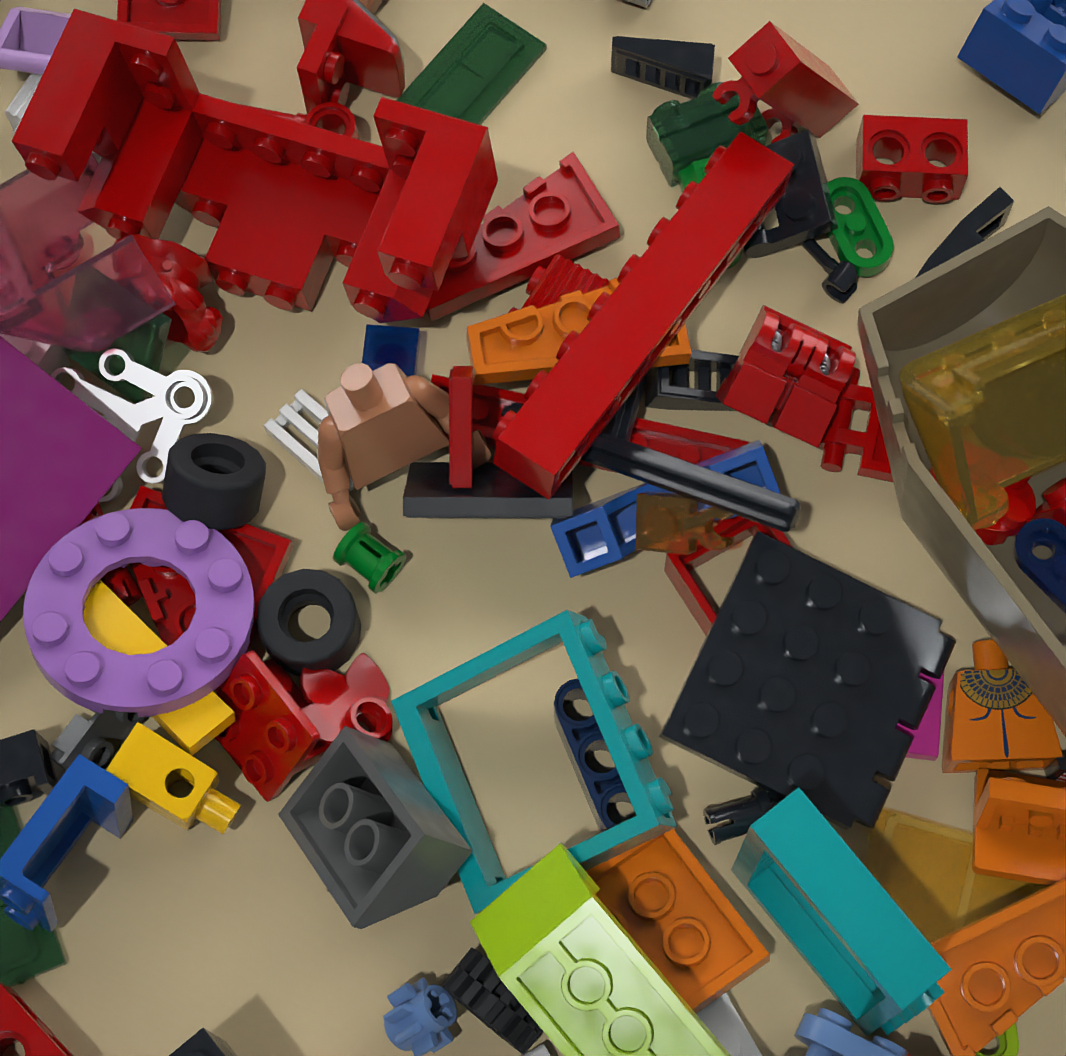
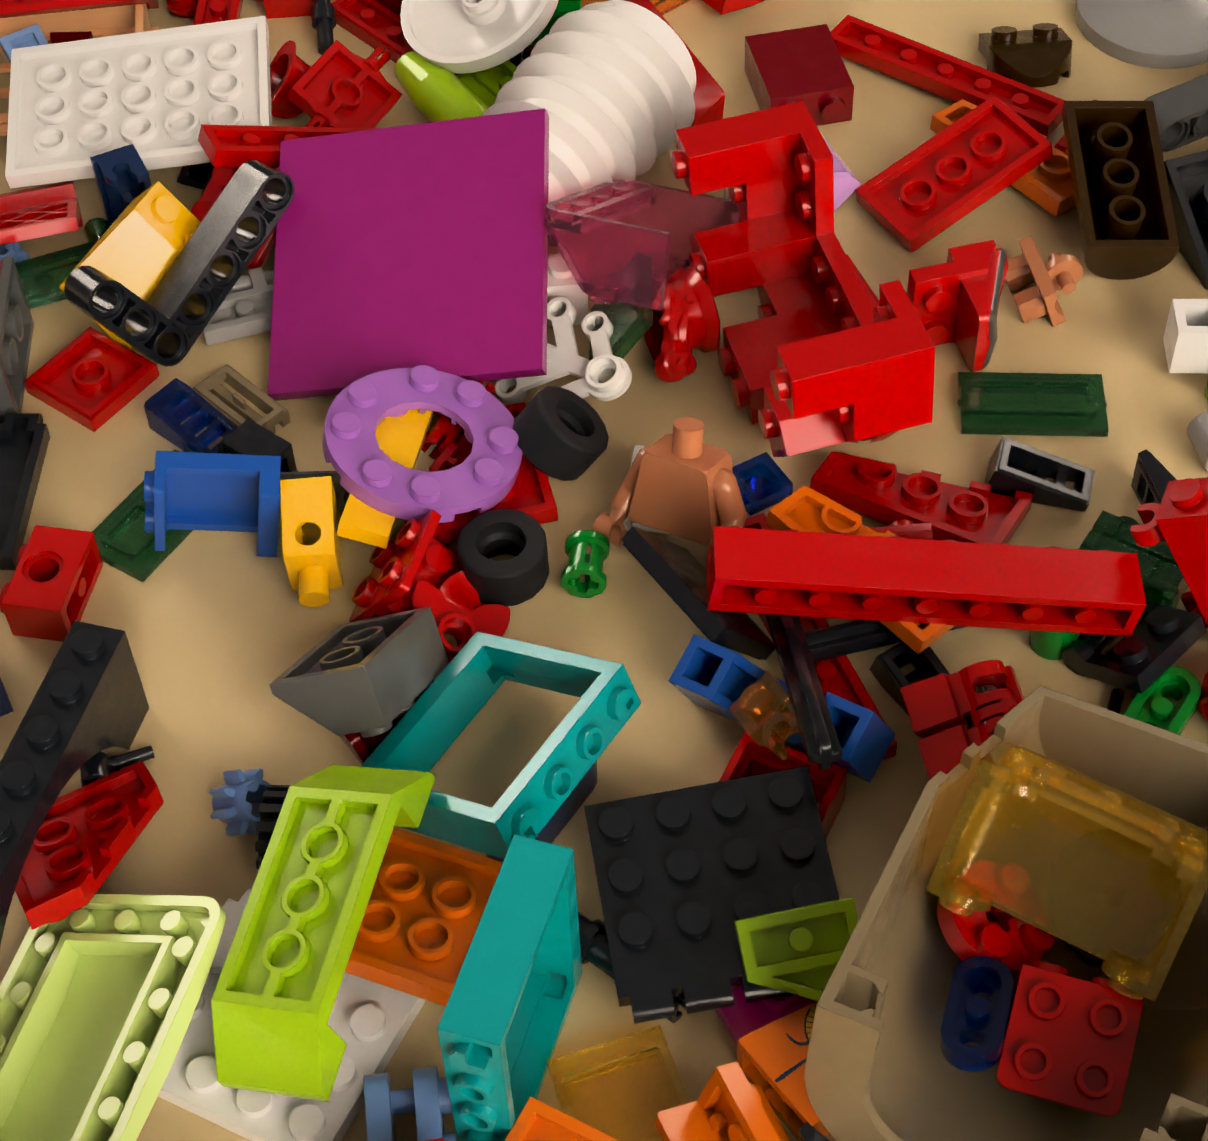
camera: 55 degrees right, 20 degrees down
(461, 427) = (736, 507): red tile -> none
(532, 156) = (1026, 469): none -> black slope
(928, 654) = (796, 946): none -> lime wing

